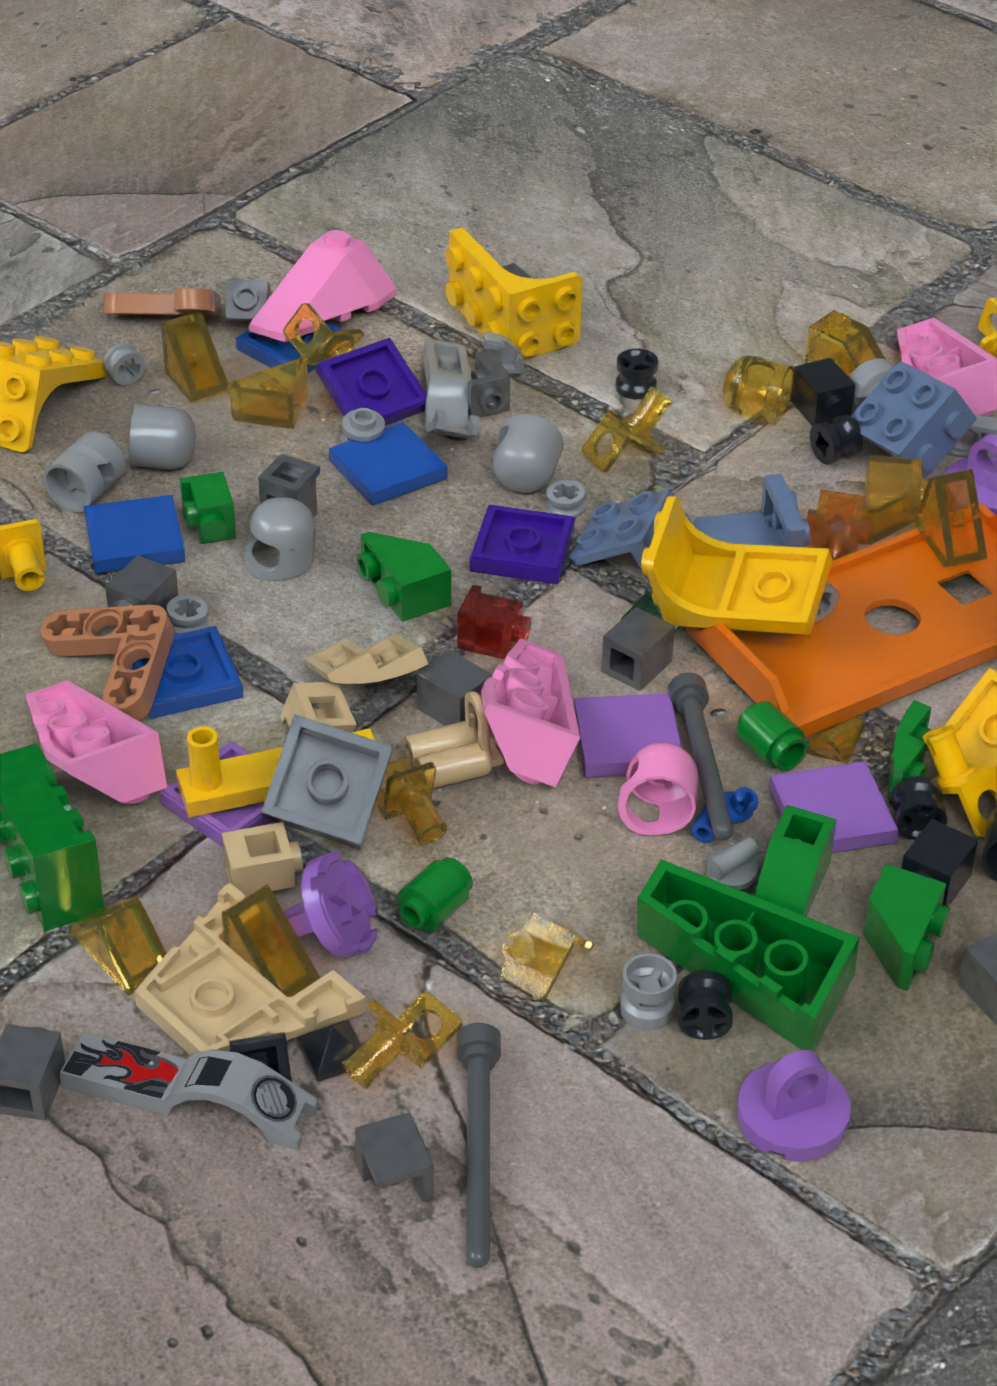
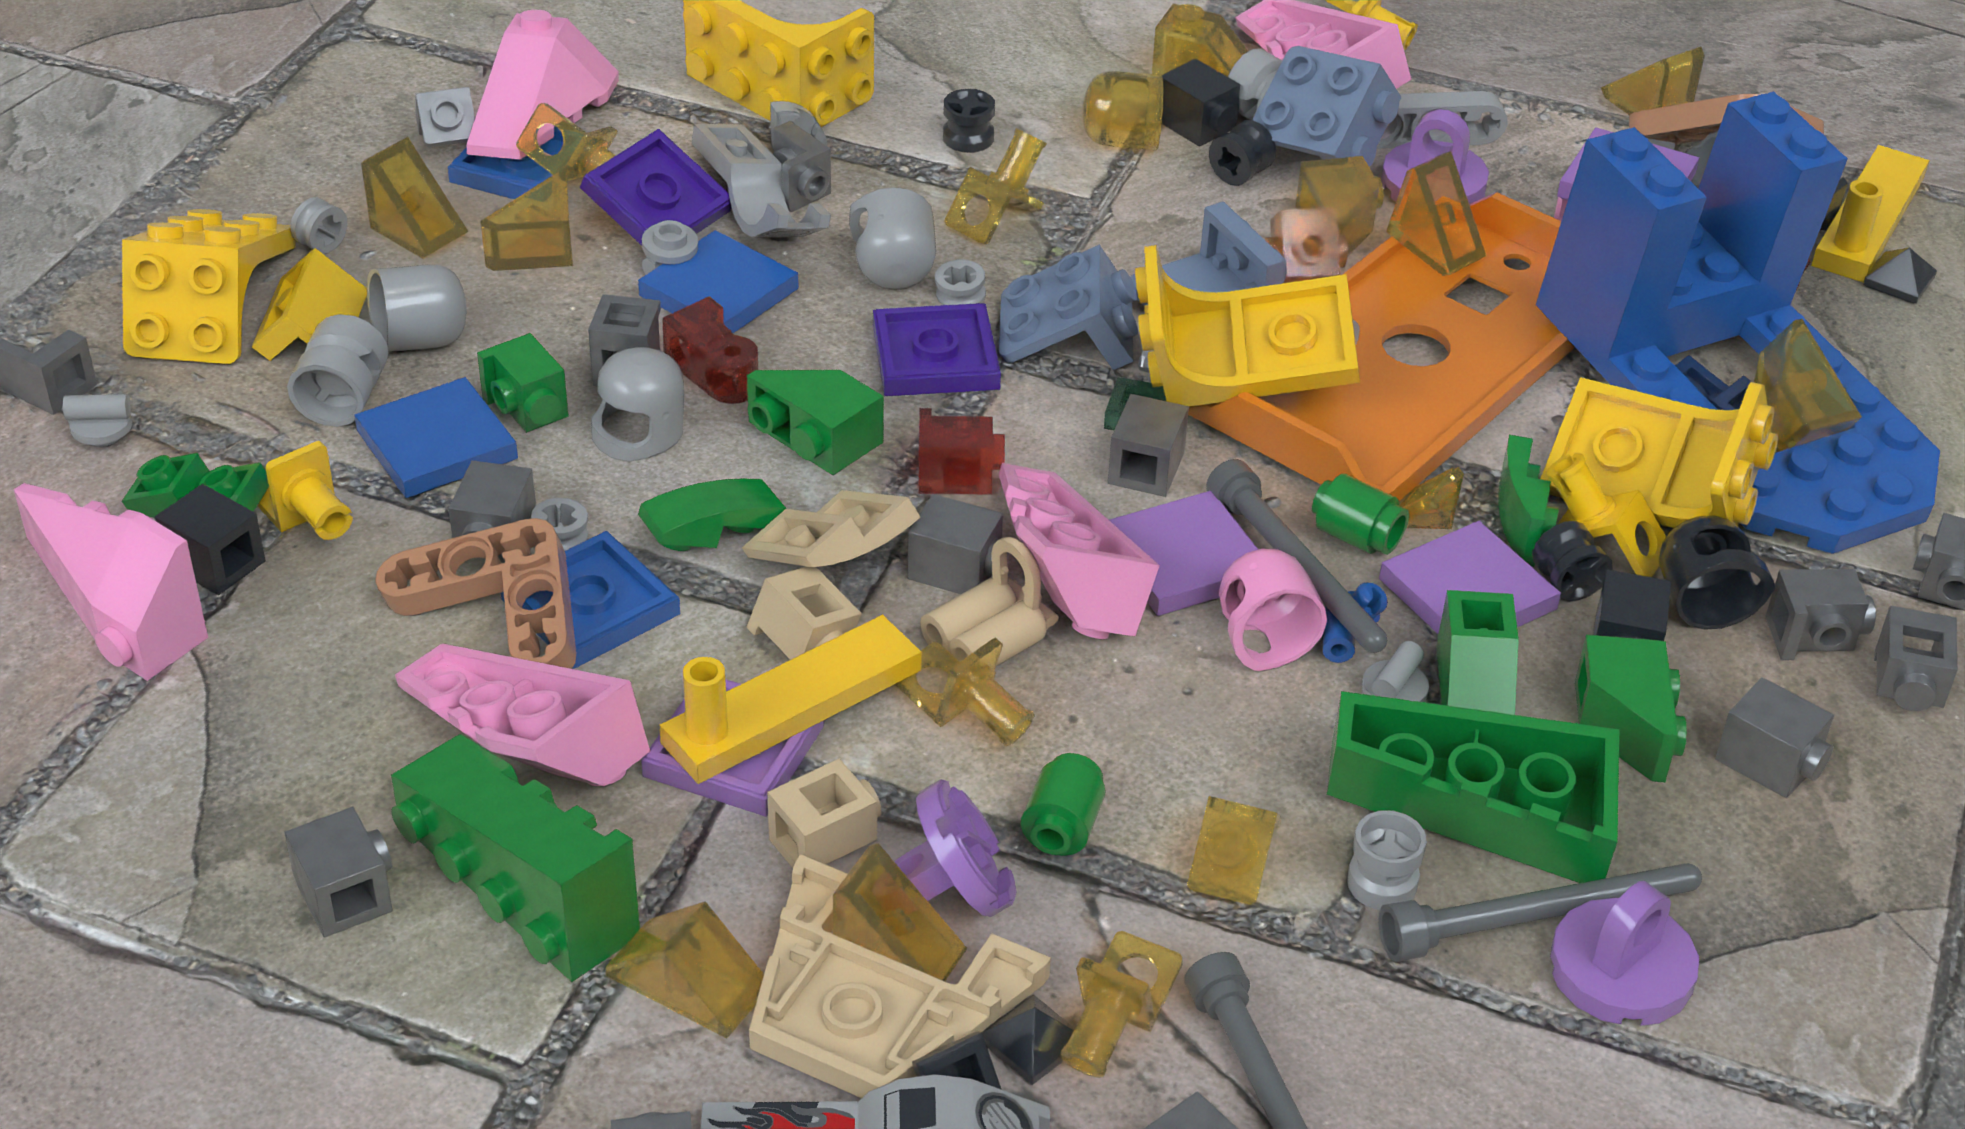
camera: 20 degrees left, 0 degrees up
(97, 411) = (304, 299): none -> yellow panel
(181, 303) = (373, 134): nougat beam -> none
(280, 626) = (699, 511): none -> green slope
(327, 781) = (877, 693): brick -> none
(350, 508) = (710, 351): none -> clear red leg
(646, 1046) = (1411, 928): none -> dark grey piece
(705, 1005) = (1462, 860): black wheel -> none

